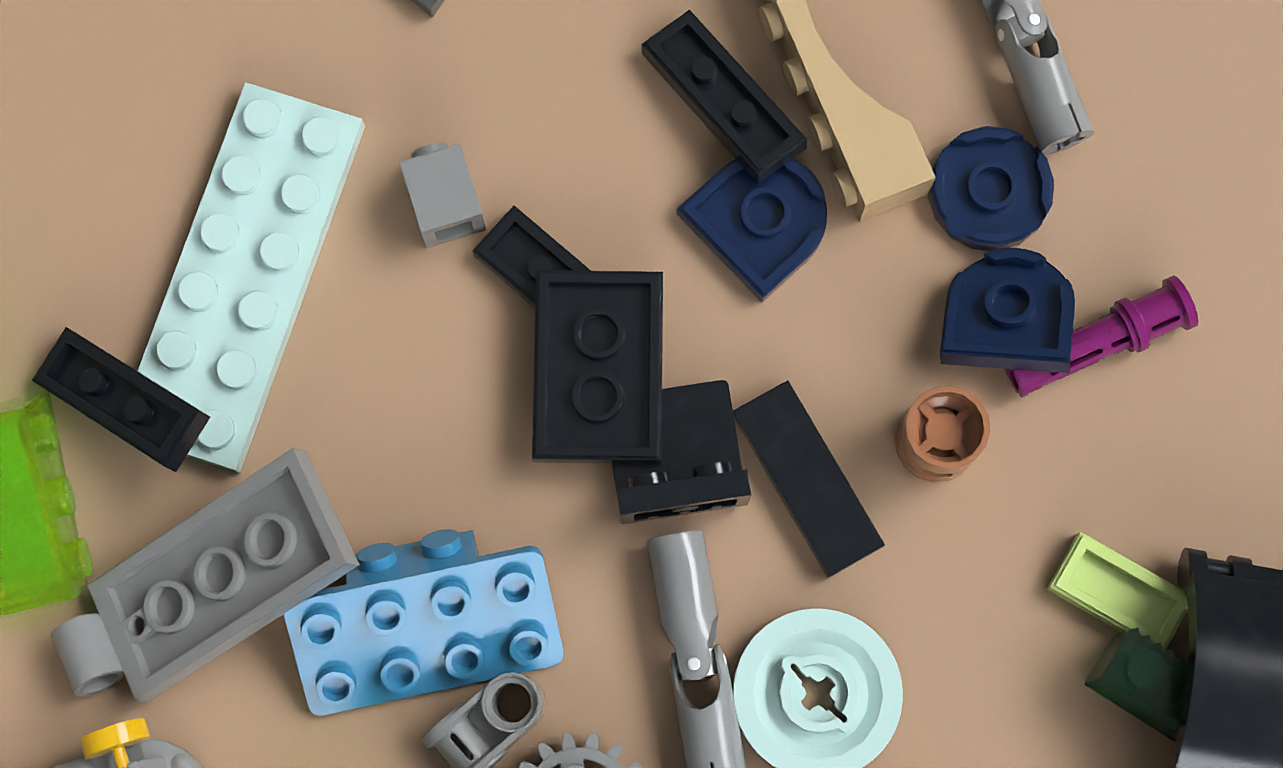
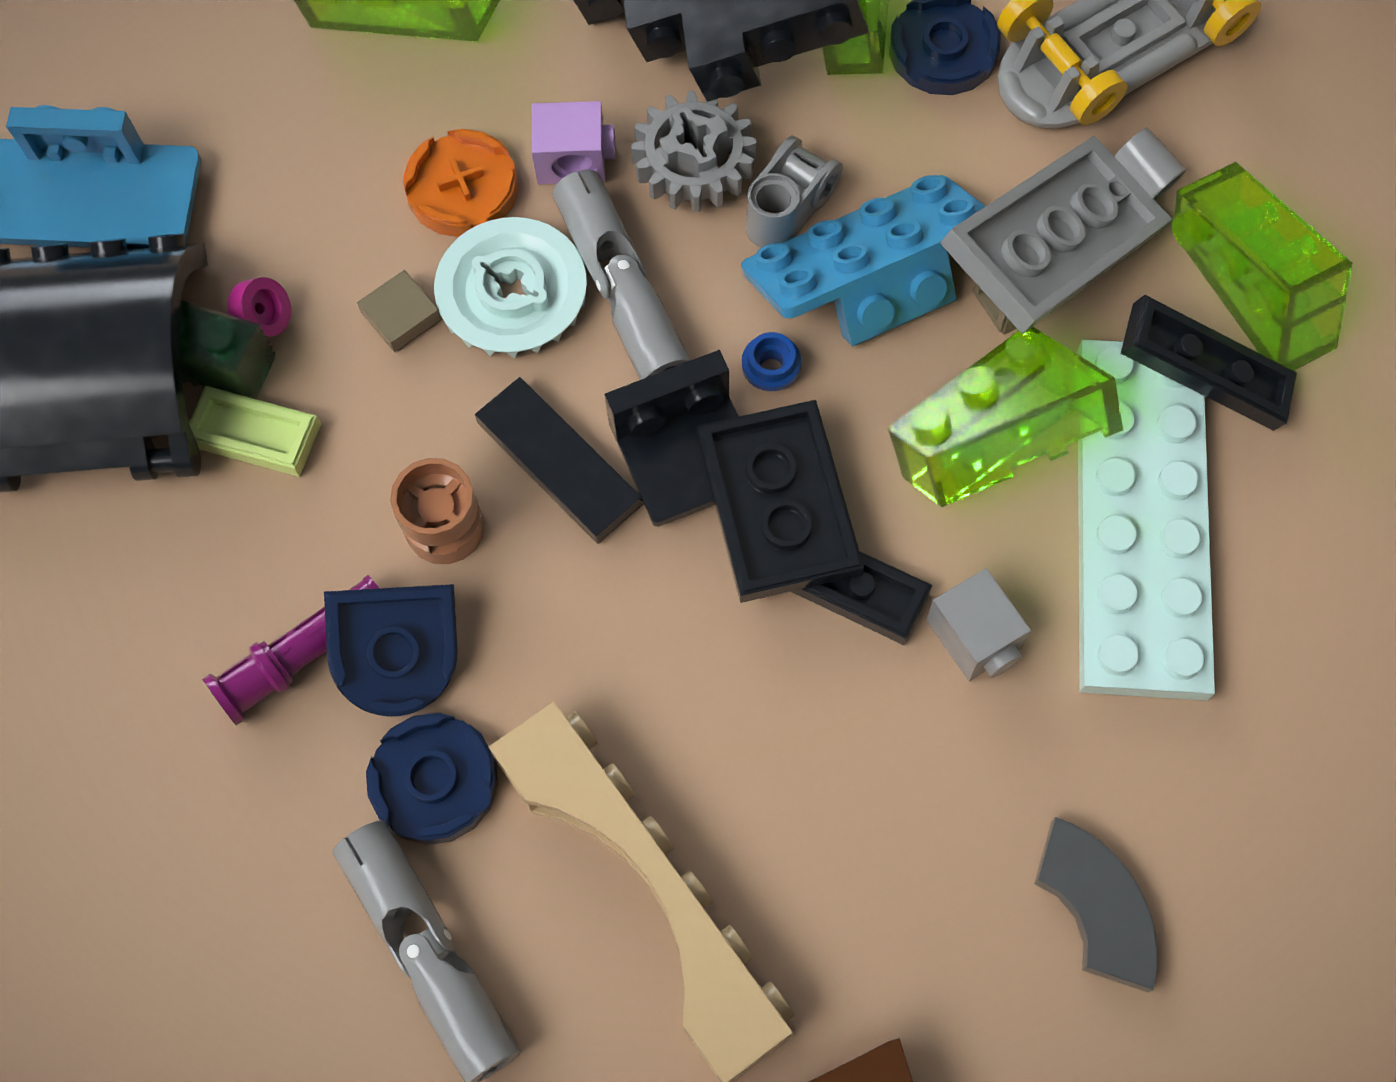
camera: 170 degrees right, 10 degrees down
(350, 388) = (1002, 412): none -> clear neon green wedge
(556, 511) = (776, 347): none -> blue plate
(724, 96) = (727, 799): black tile -> none
(759, 228) = (659, 691): dark blue tile -> none
(943, 695) = (399, 310): none -> dark tan tile
(1096, 726) = (261, 302): none -> dark pink tile

